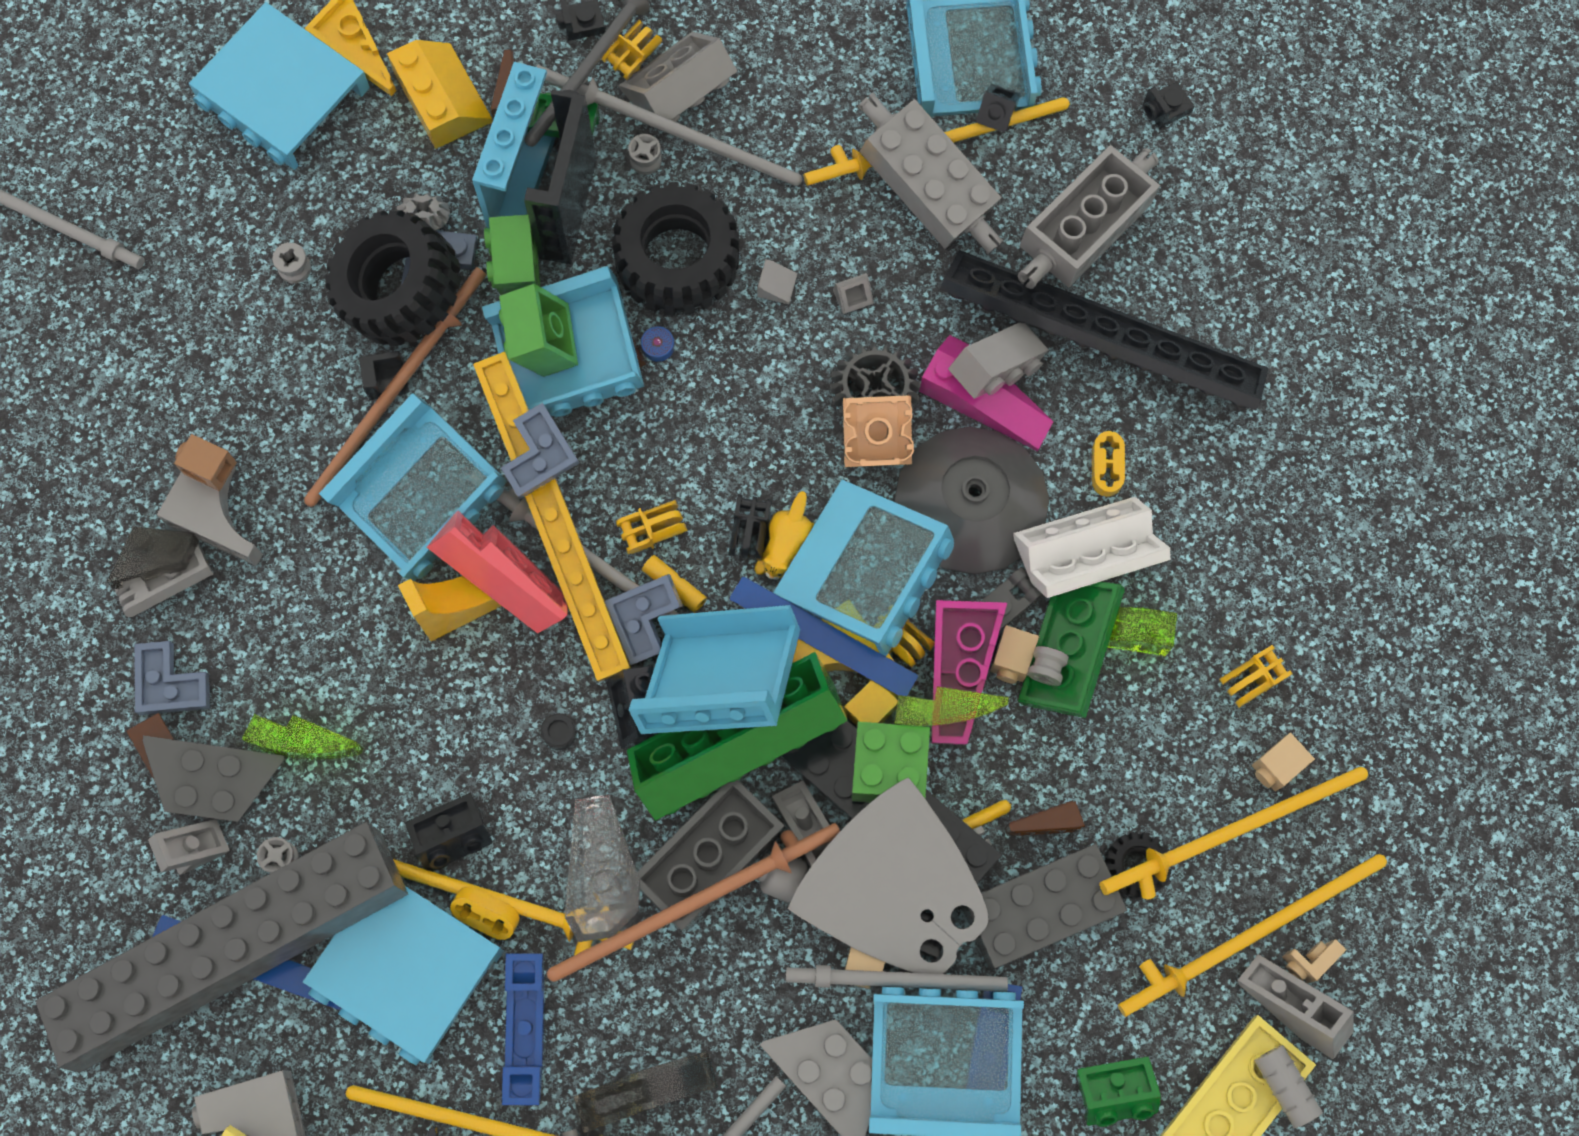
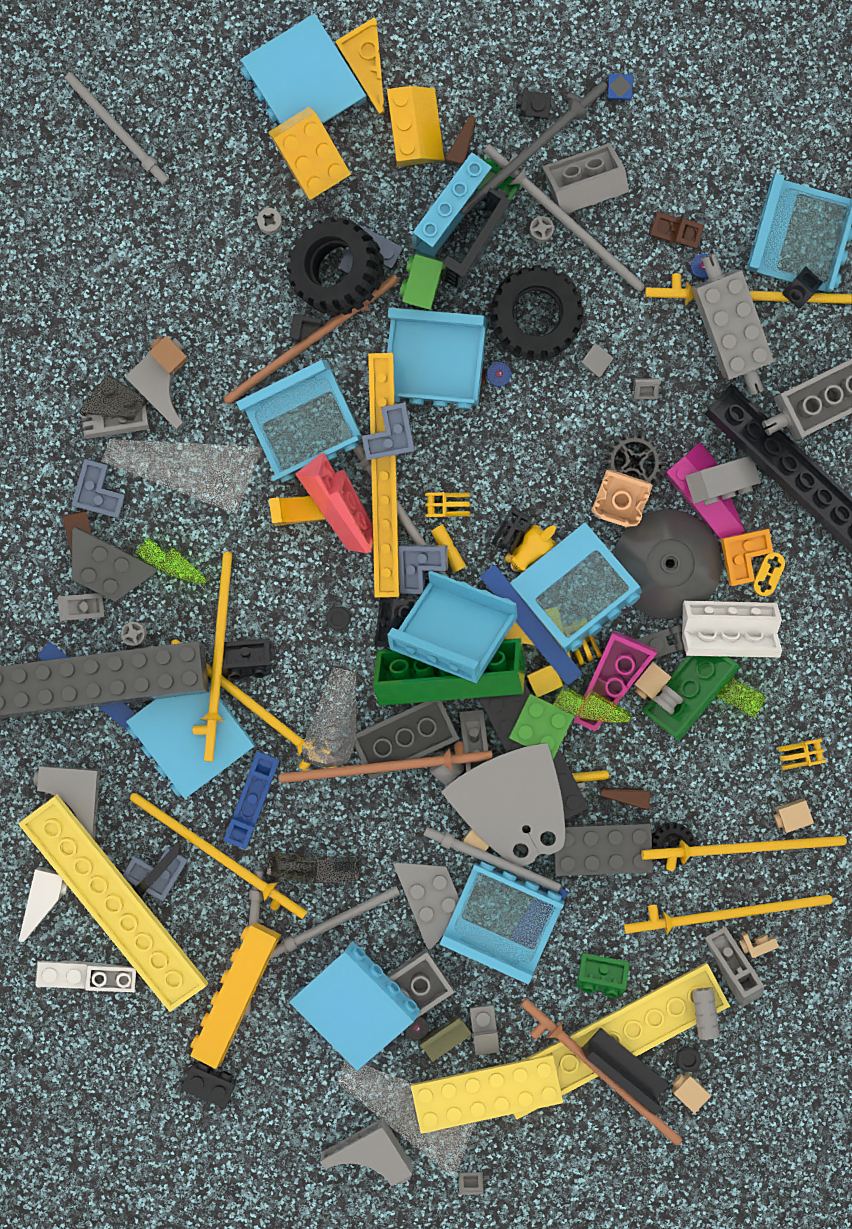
camera: 20 degrees right, 15 degrees up
(295, 605) = (201, 471): none -> clear wing
(313, 157) = (309, 153): none -> yellow brick
(424, 925) = (212, 716): none -> yellow piece
(438, 210) = (372, 226): light grey gear -> none
(484, 913) = (252, 719): yellow beam -> none
(537, 330) = (420, 344): bright green brick -> none
(631, 49) = (559, 146): yellow arm -> none
(814, 101) = (676, 230): none -> reddish brown slope
(860, 128) = (697, 267): none -> blue tile
(1058, 448) = (738, 554): none -> light orange plate

